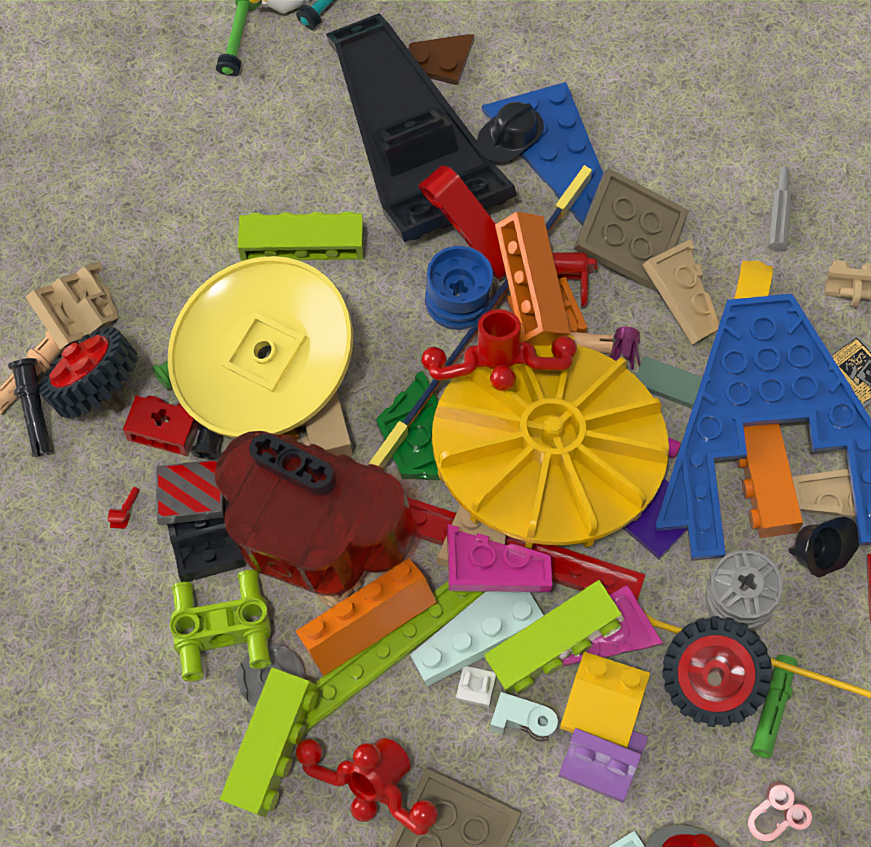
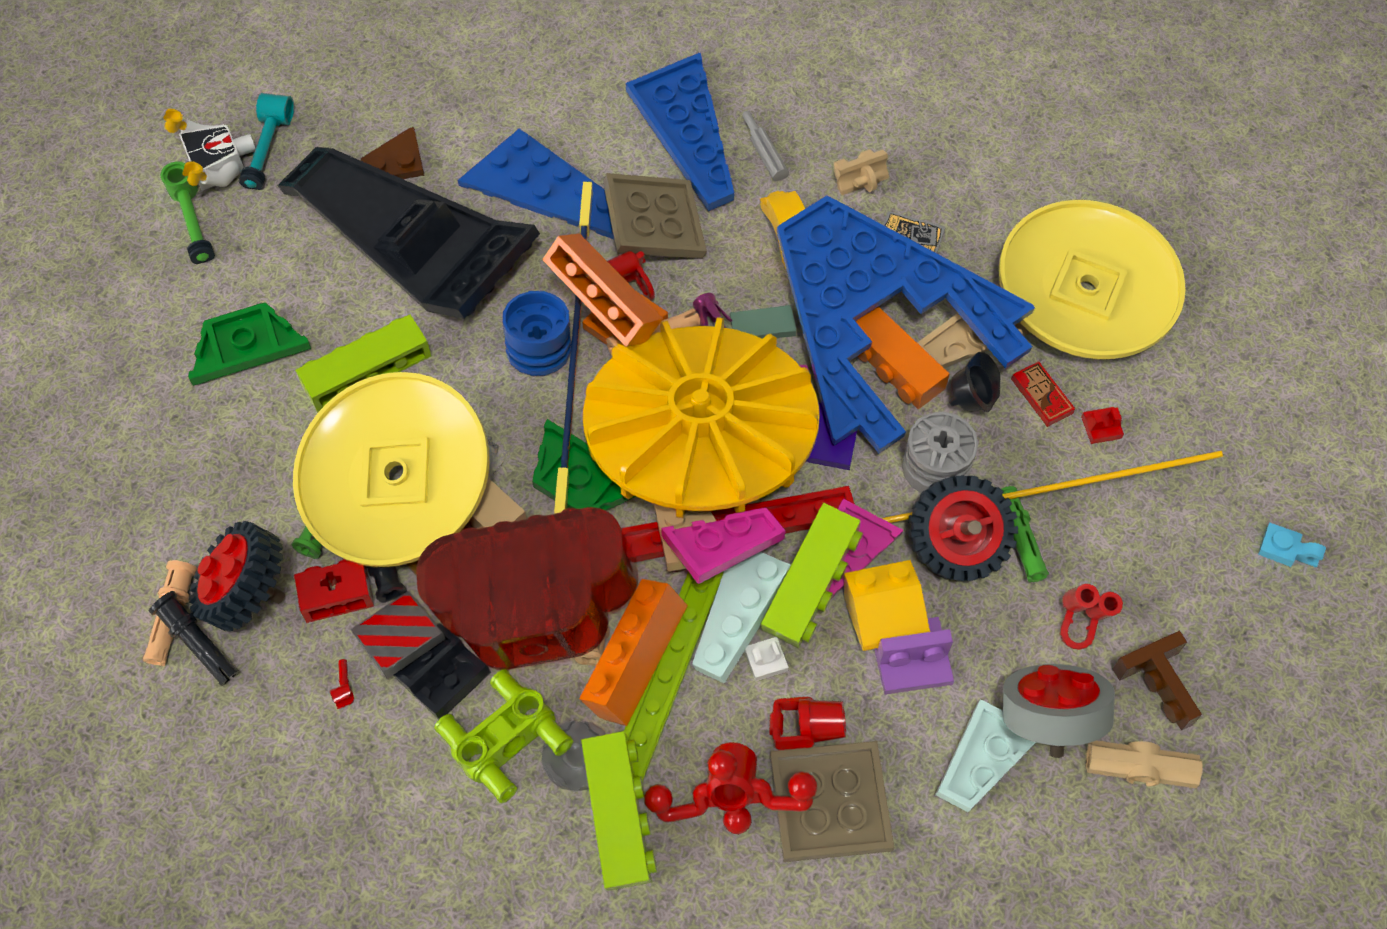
camera: 35 degrees left, 5 degrees down
(74, 305) = (181, 527): tan slope -> none
(216, 165) = (243, 341): none -> green wing
(298, 477) = (480, 538): black beam -> none
(466, 214) = (494, 258): red beam -> none
(478, 763) = (817, 721): none -> red piece
(499, 349) = (614, 358): red wheel -> none
(510, 132) = (498, 188): black piece -> none
(525, 716) = (825, 658): light aqua leg -> none
(681, 288) = (722, 240): tan wing -> none
(721, 143) = (684, 120): none -> blue wing

